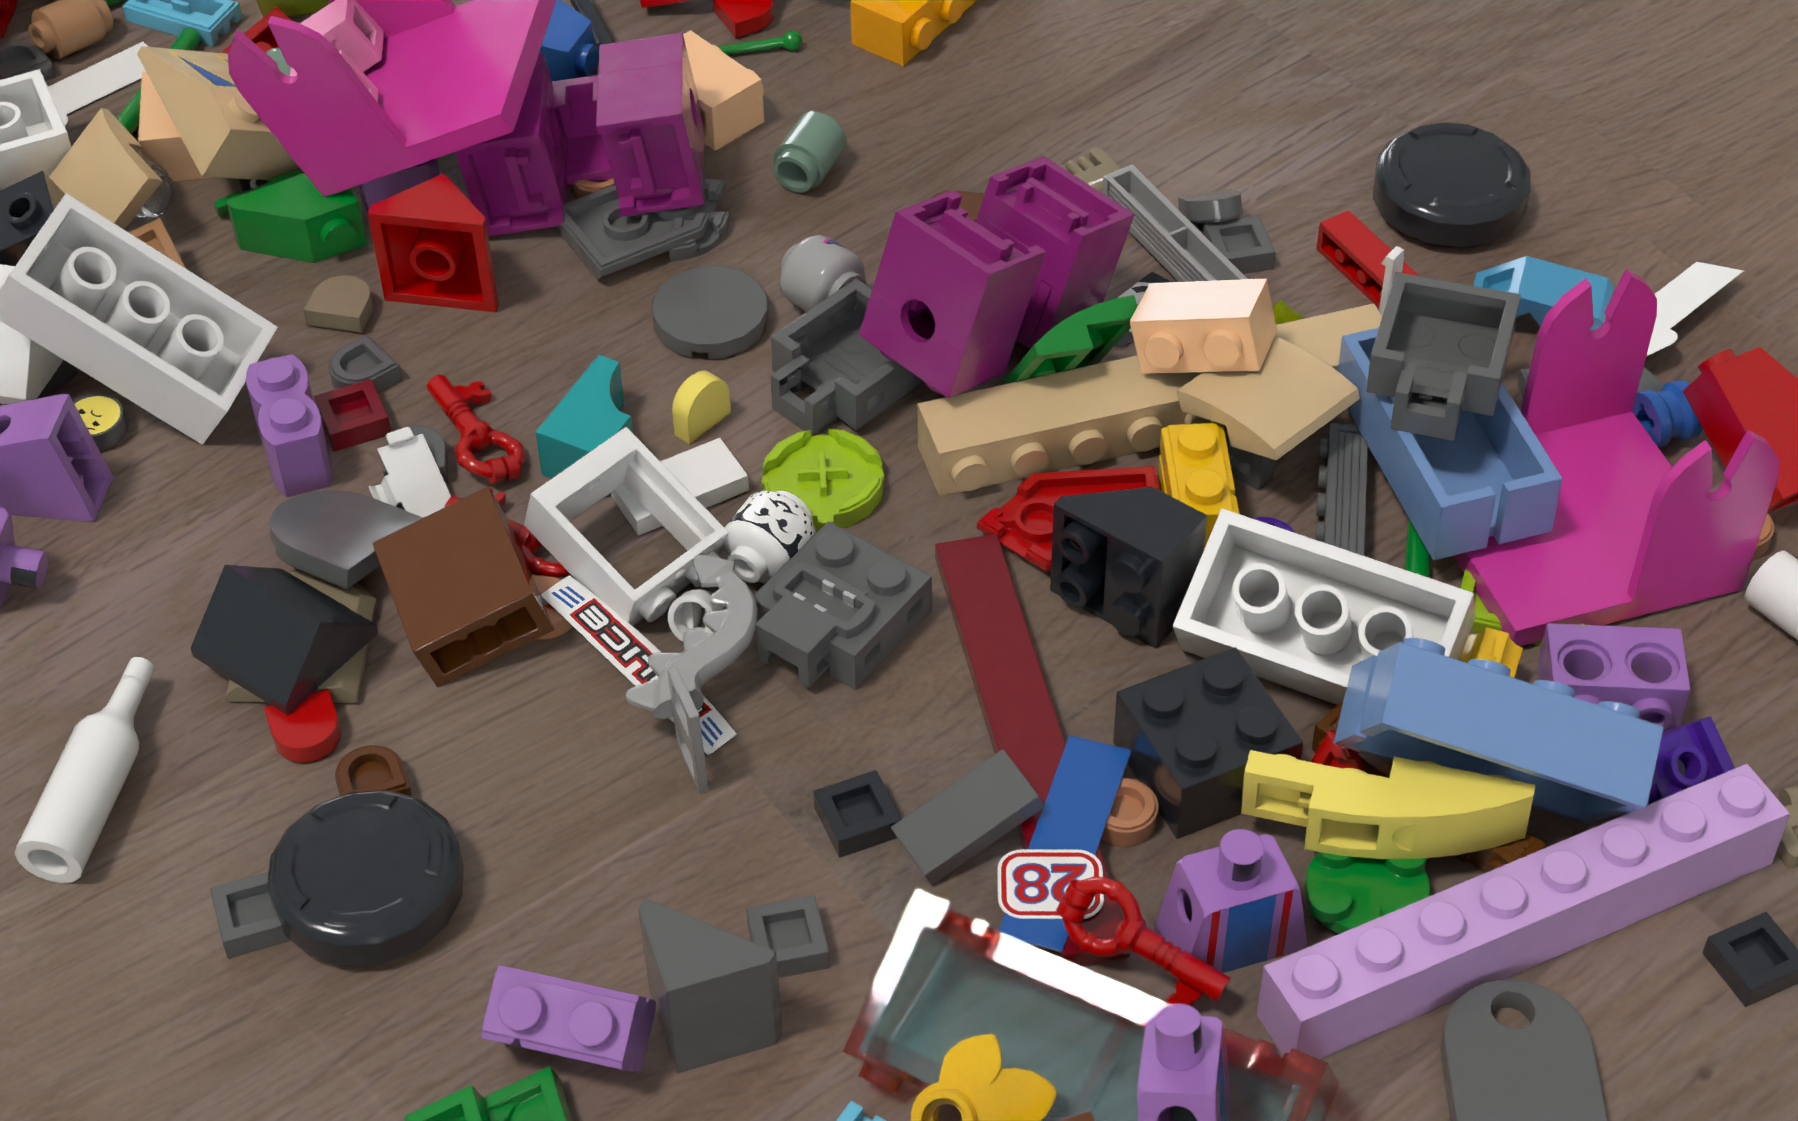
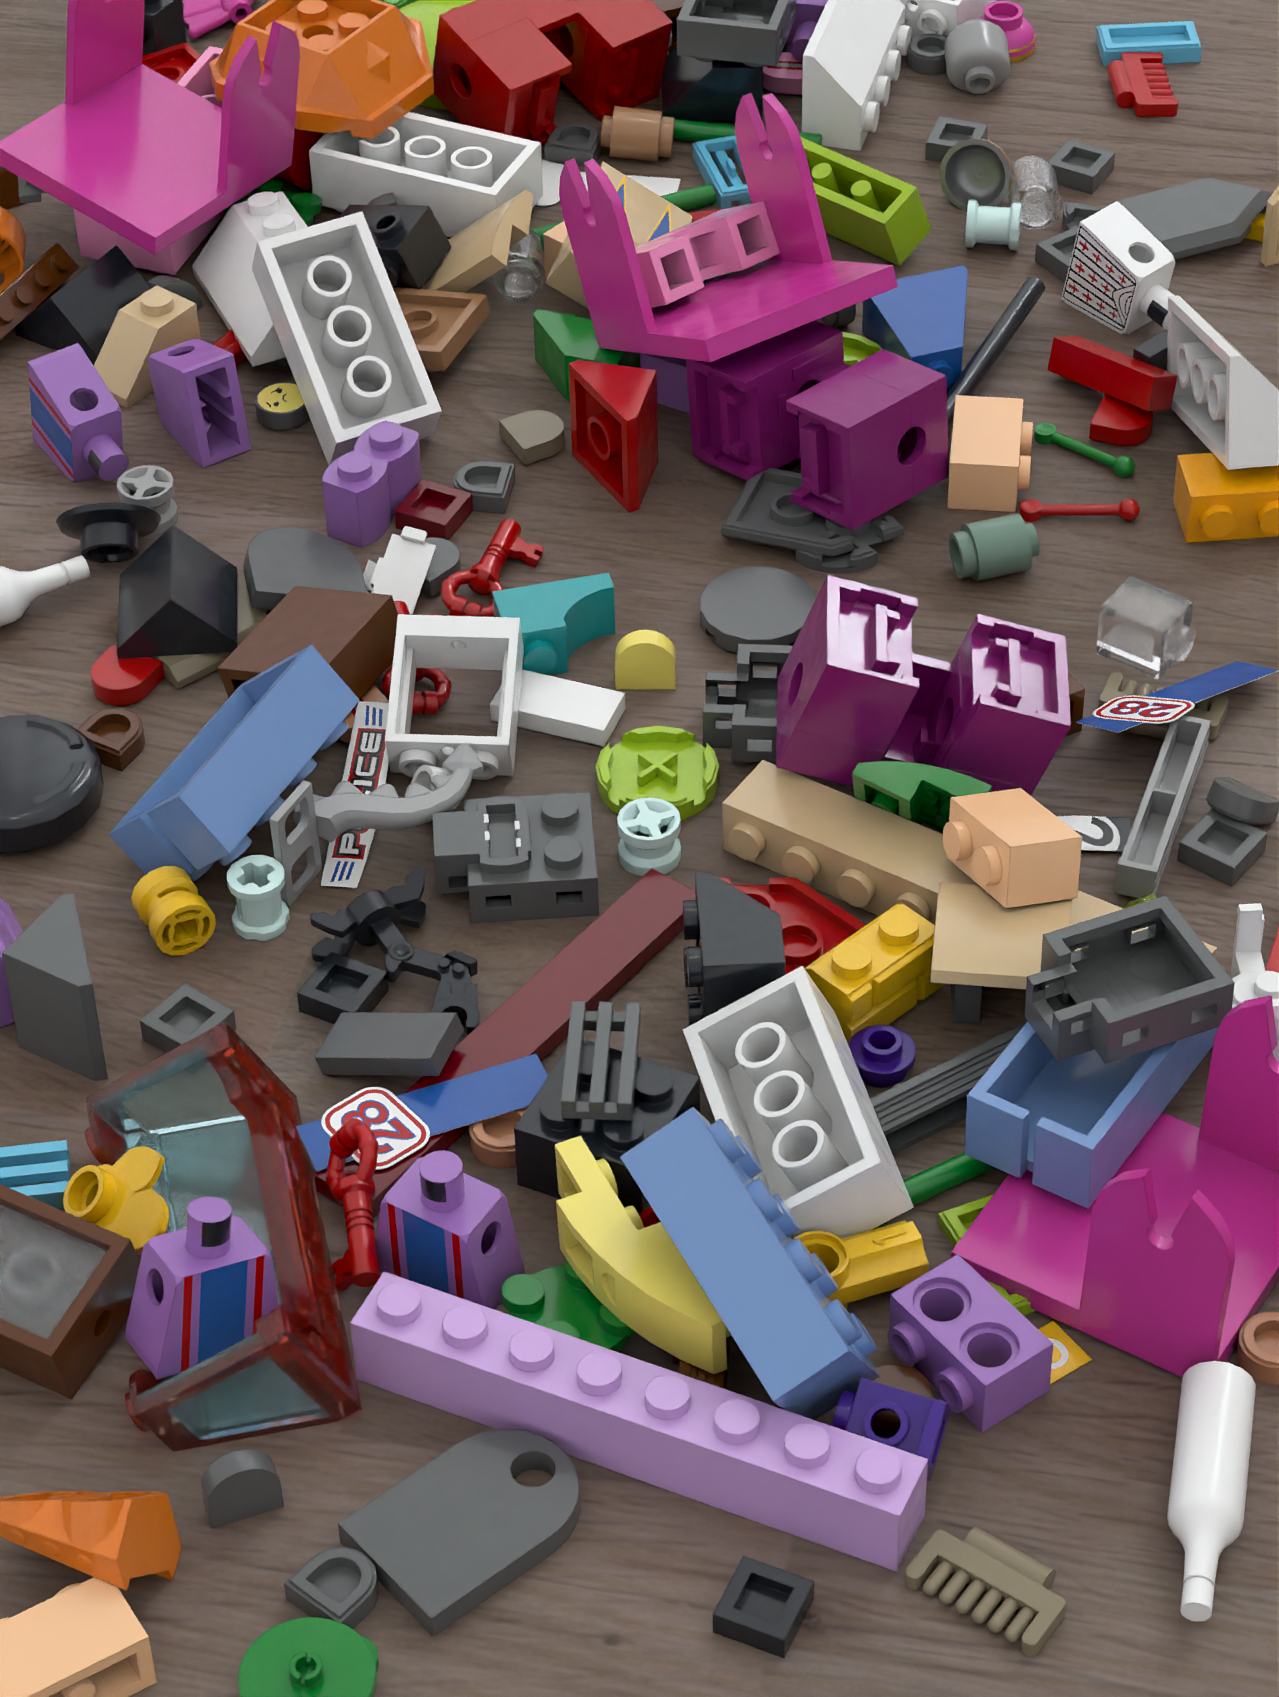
camera: 50 degrees right, 5 degrees down
(106, 576) = (150, 488): none -> light grey wheel
(125, 624) = (108, 529): none -> black piece
(562, 713) = (238, 767): none -> medium blue piece
(654, 862) = (173, 910): none -> yellow wheel
(691, 796) = (257, 889): none -> light aqua bush
(767, 534) = (543, 766): white head -> none
(777, 111) = (1033, 510): none -> red hinge
(900, 521) = (649, 836): none -> light aqua wheel
(945, 747) = (375, 919): none -> black piece
(989, 134) = (1145, 628): none -> clear brick
(1081, 150) = (1174, 700): none -> blue sticker
(1192, 681) = (603, 1023): none -> tile

